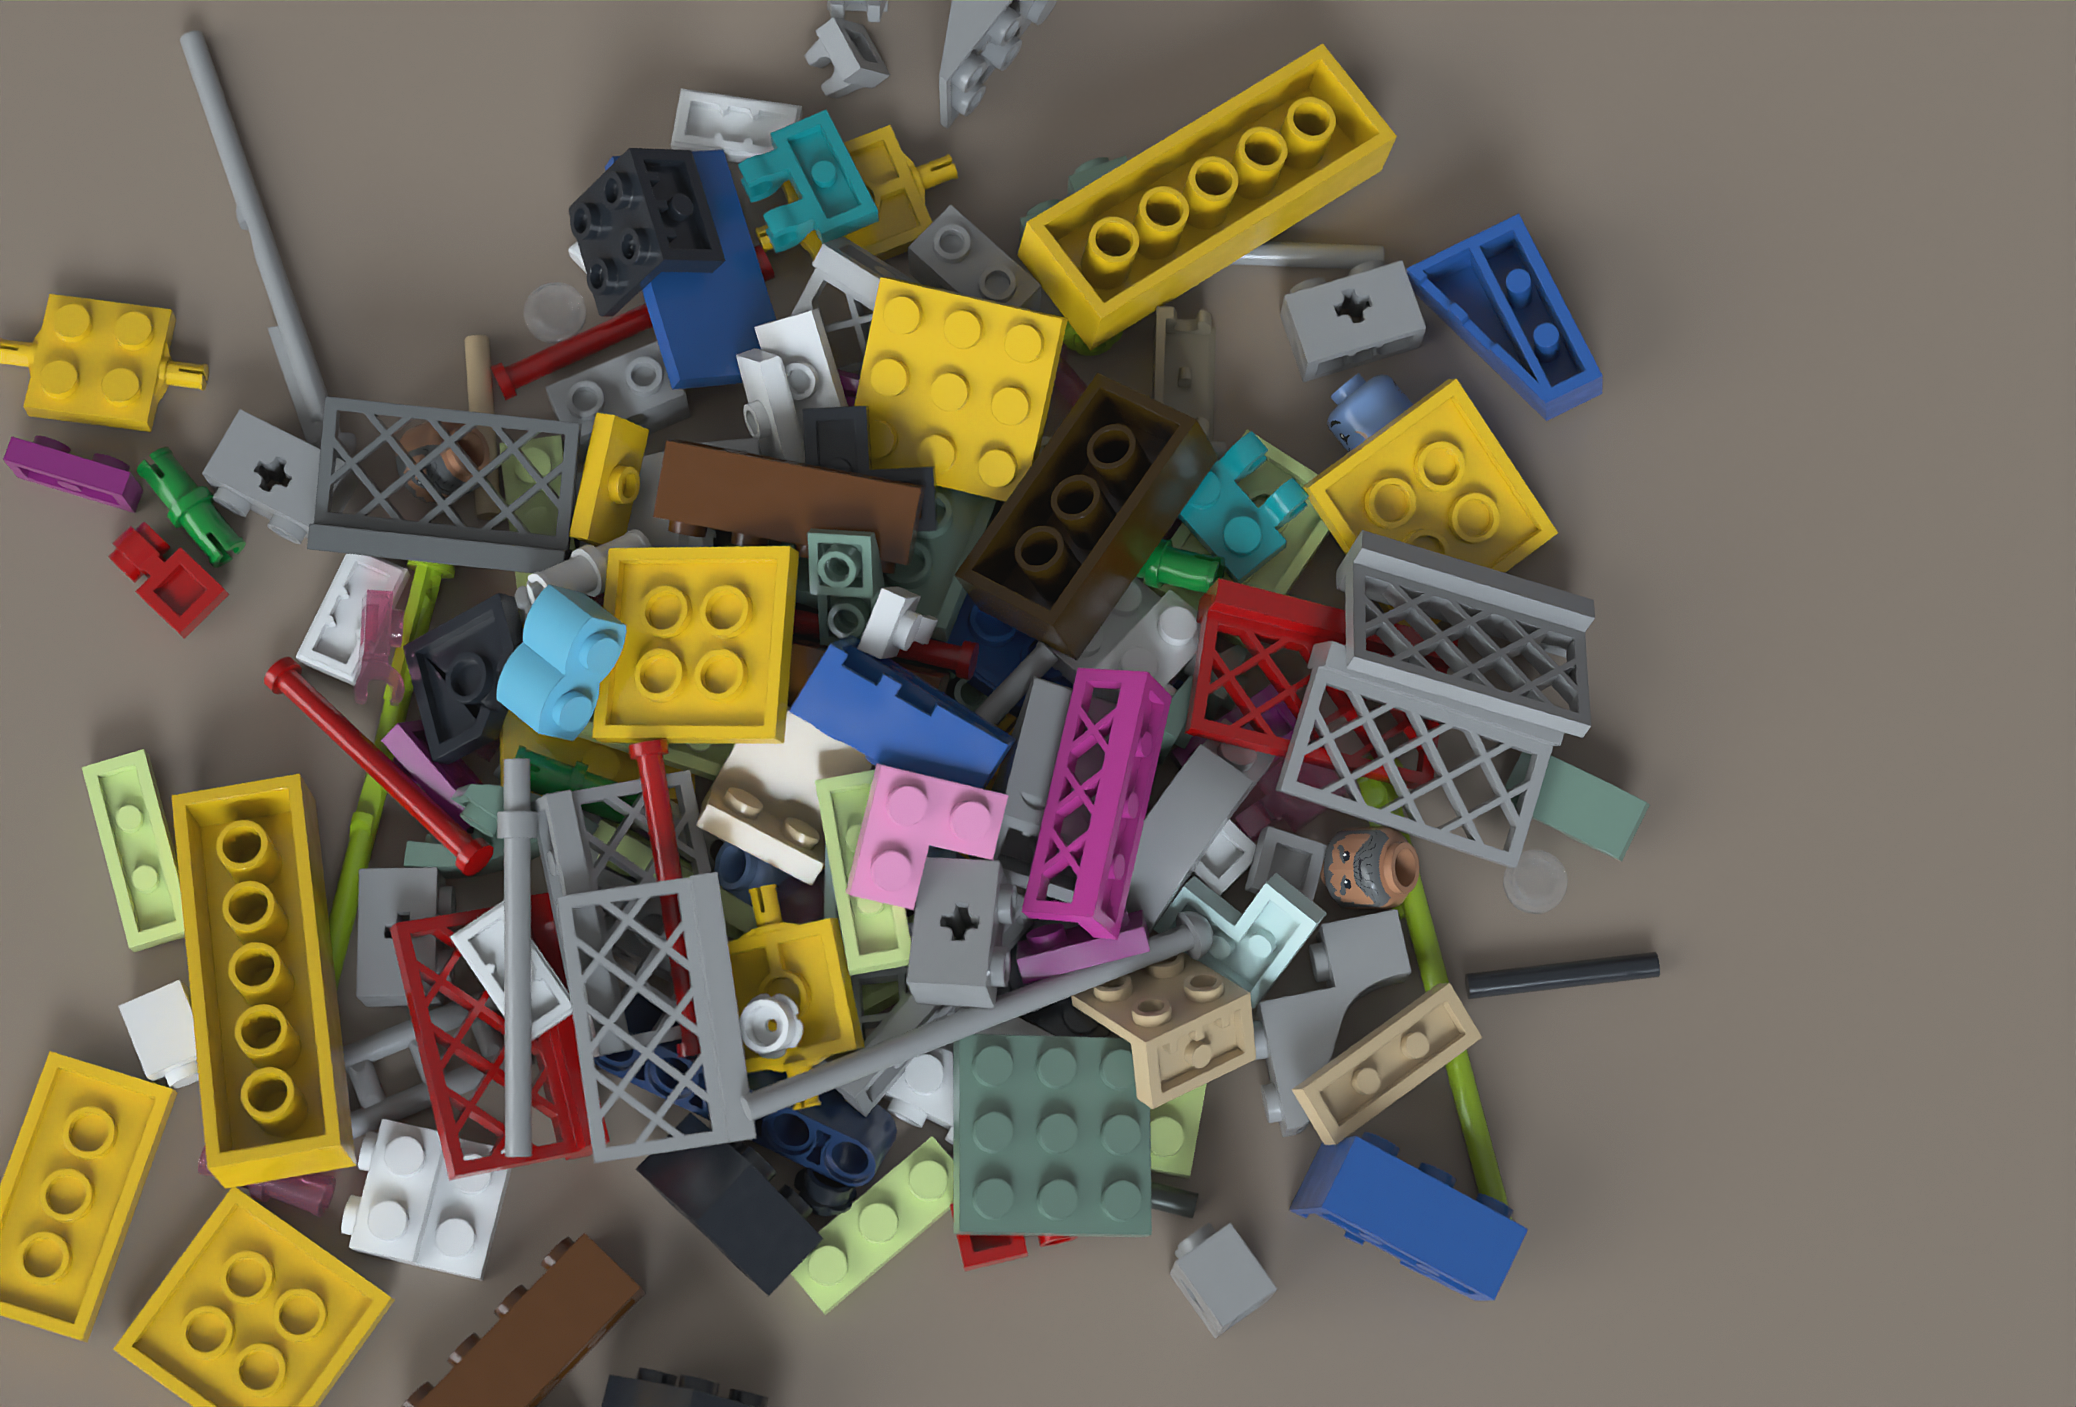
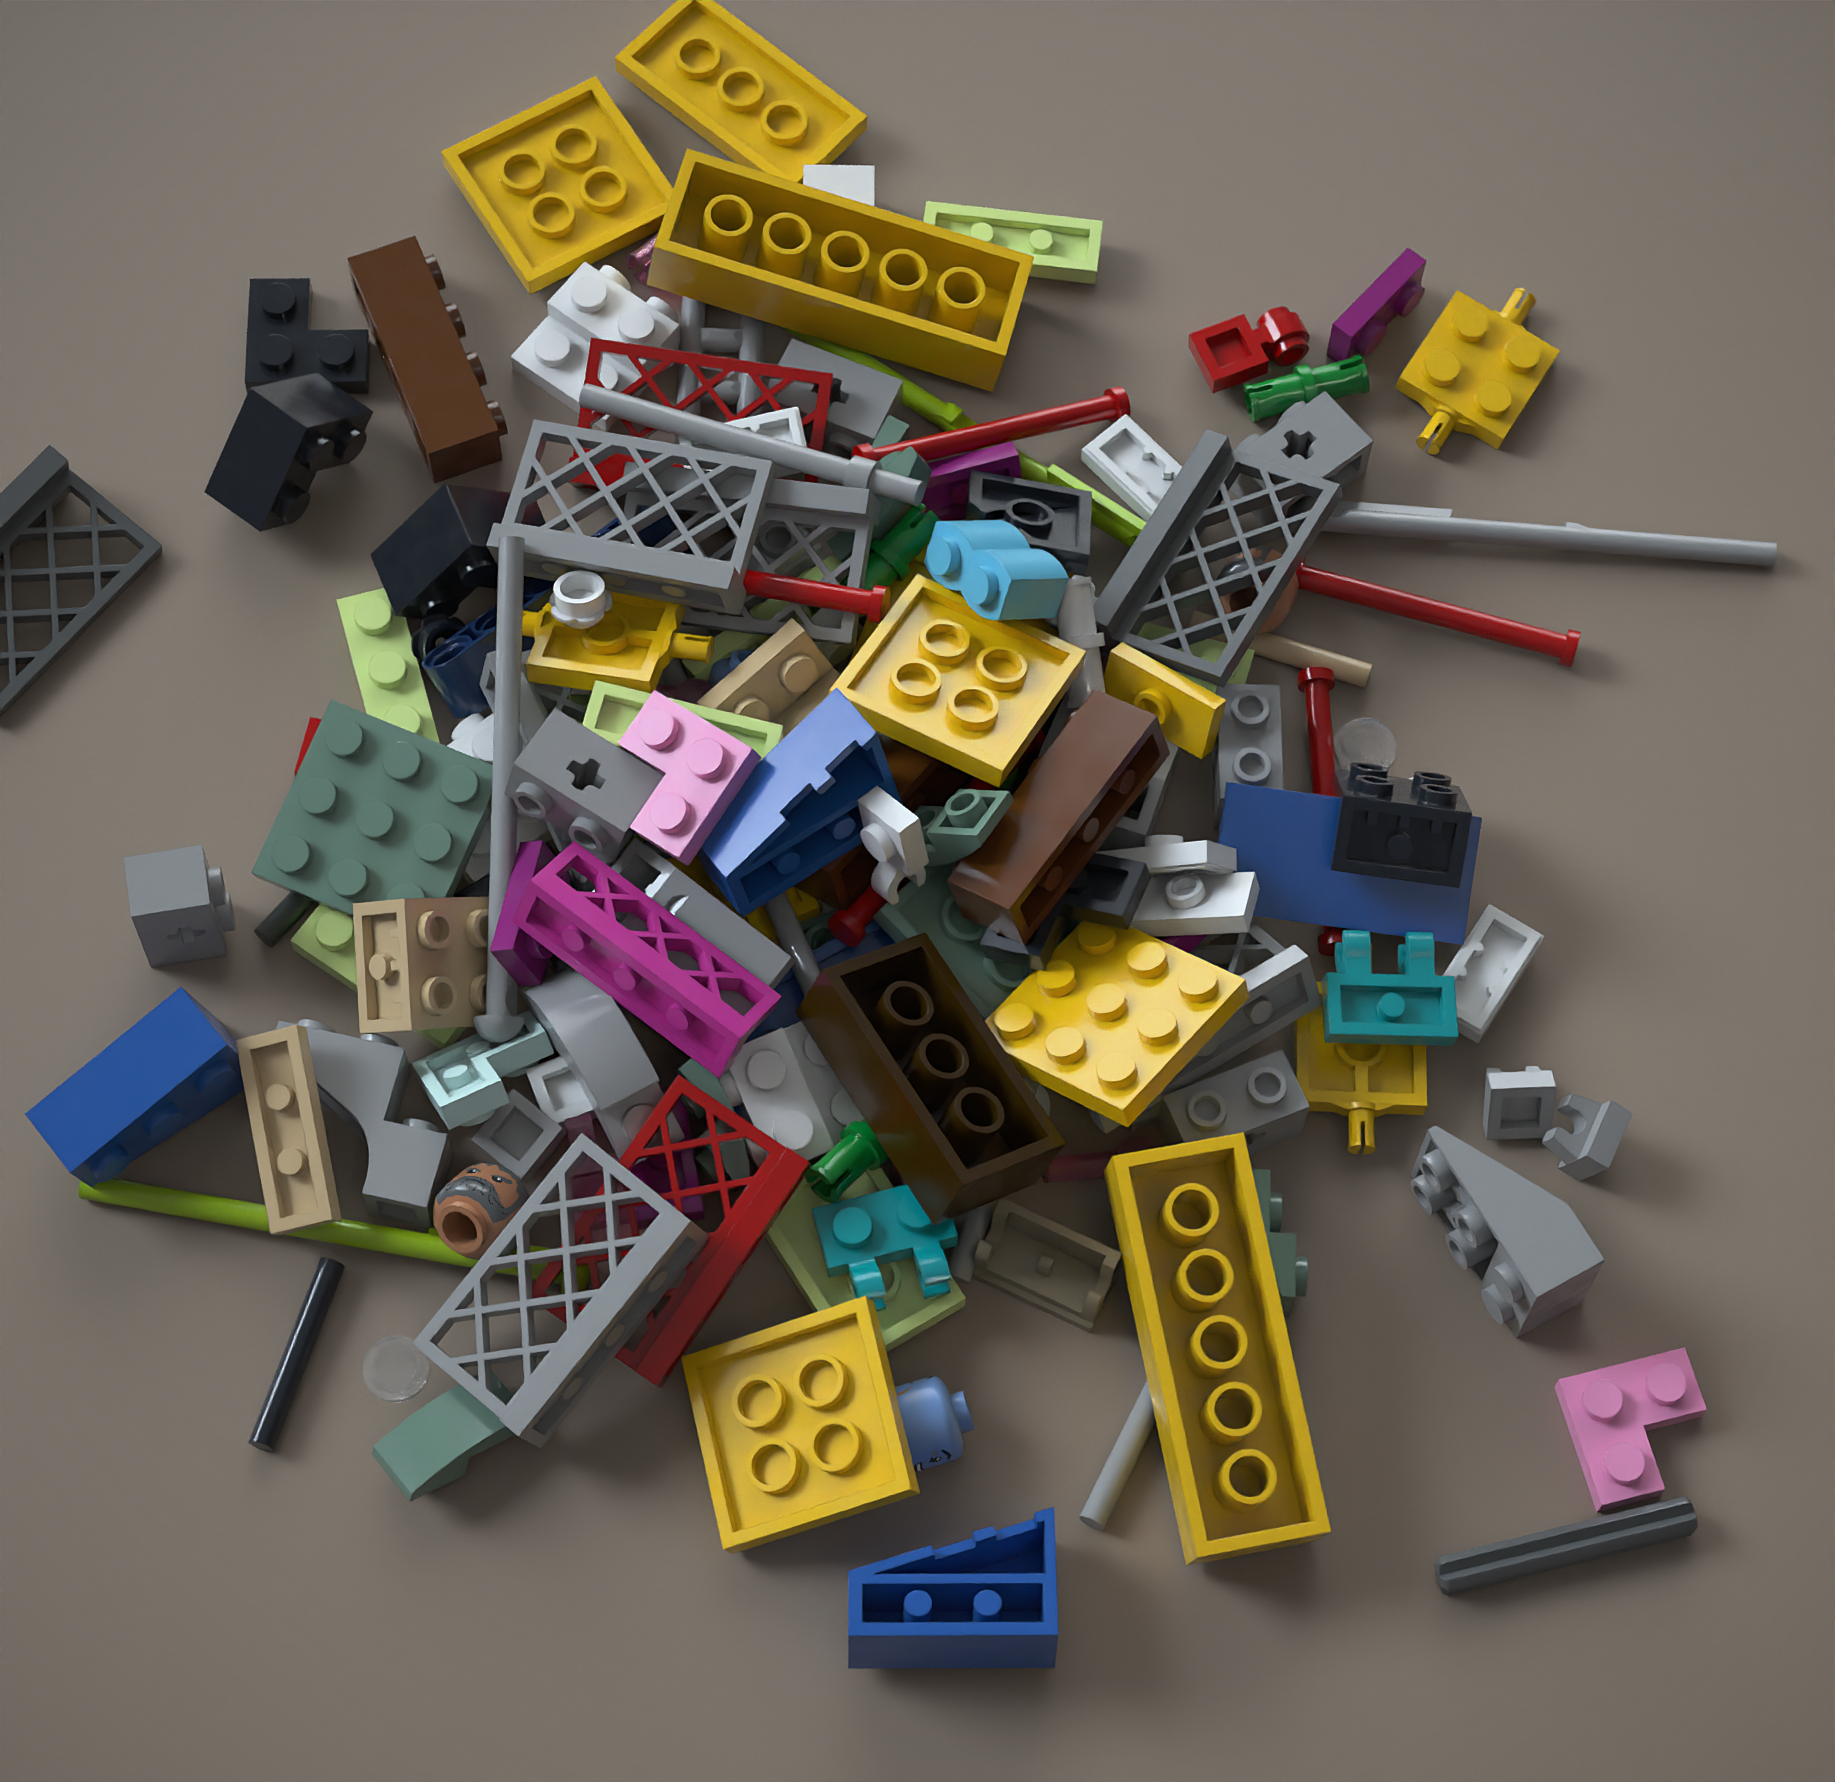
camera: 115 degrees right, 10 degrees down
(372, 180) = (1439, 613): none -> red bar
(379, 631) = (1107, 468): clear pink plate -> none
(1333, 343) = (1041, 1412): light grey brick -> none
(1476, 604) = (692, 1407): light grey fence -> none

